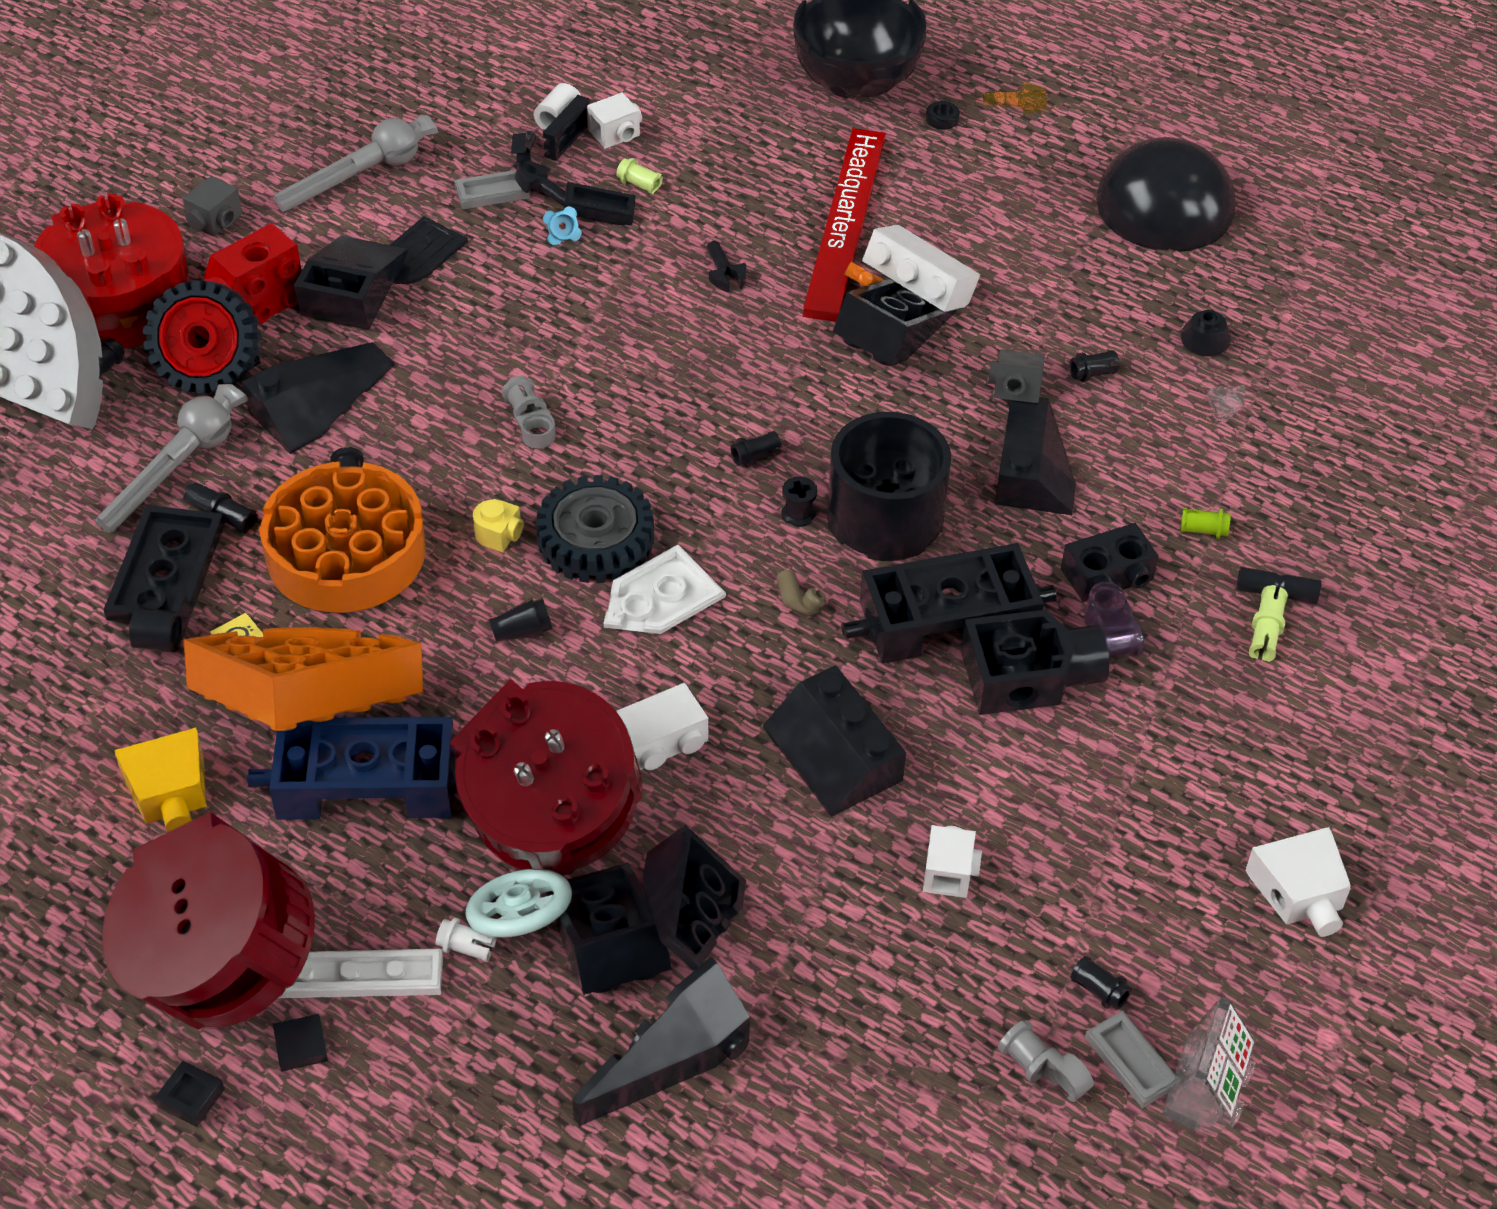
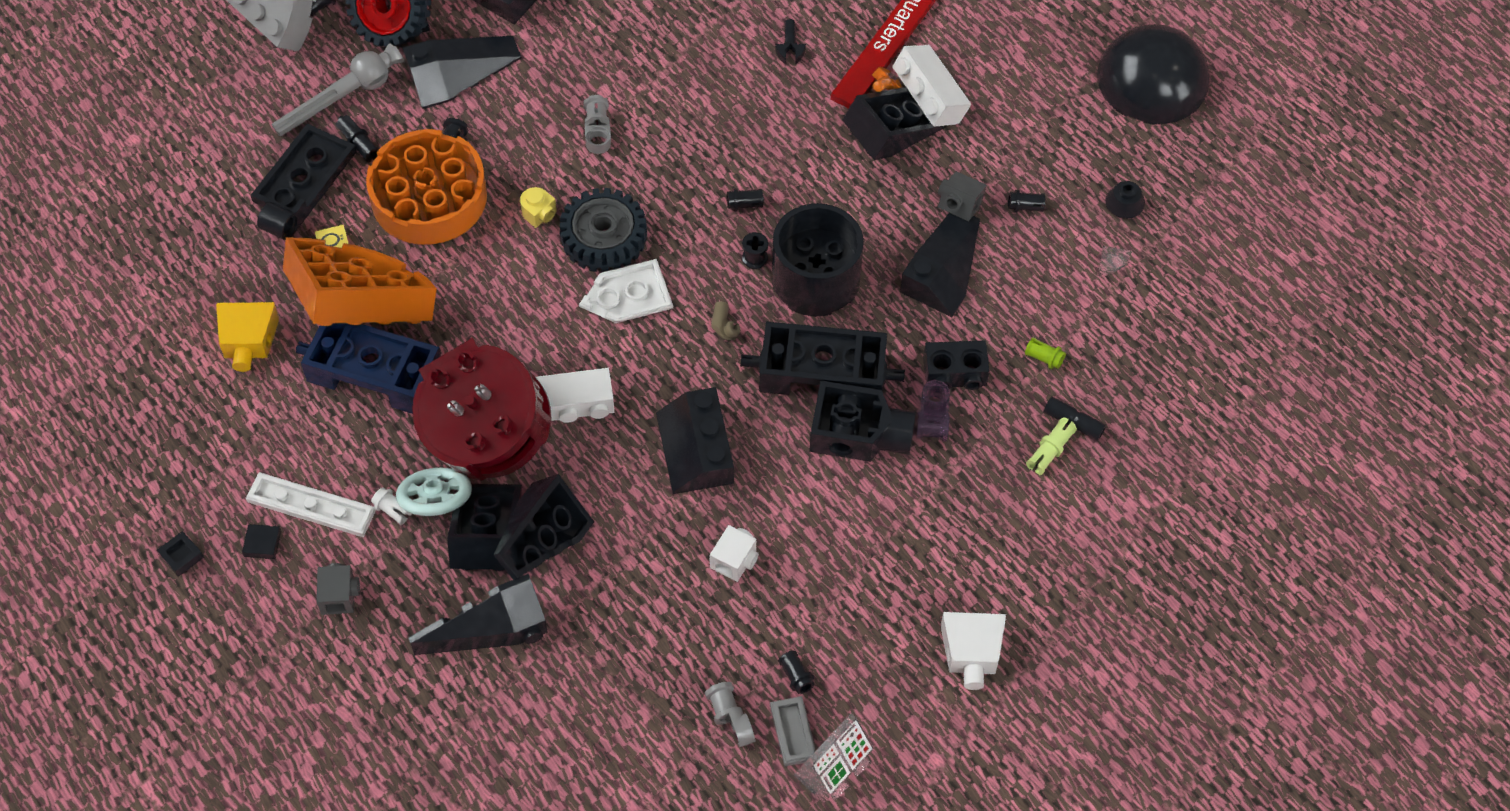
camera: 20 degrees right, 10 degrees up
(207, 925) = (223, 446): dark red piece -> none
(438, 1070) = (336, 589): none -> dark grey brick
(522, 621) = (525, 286): black cone -> none

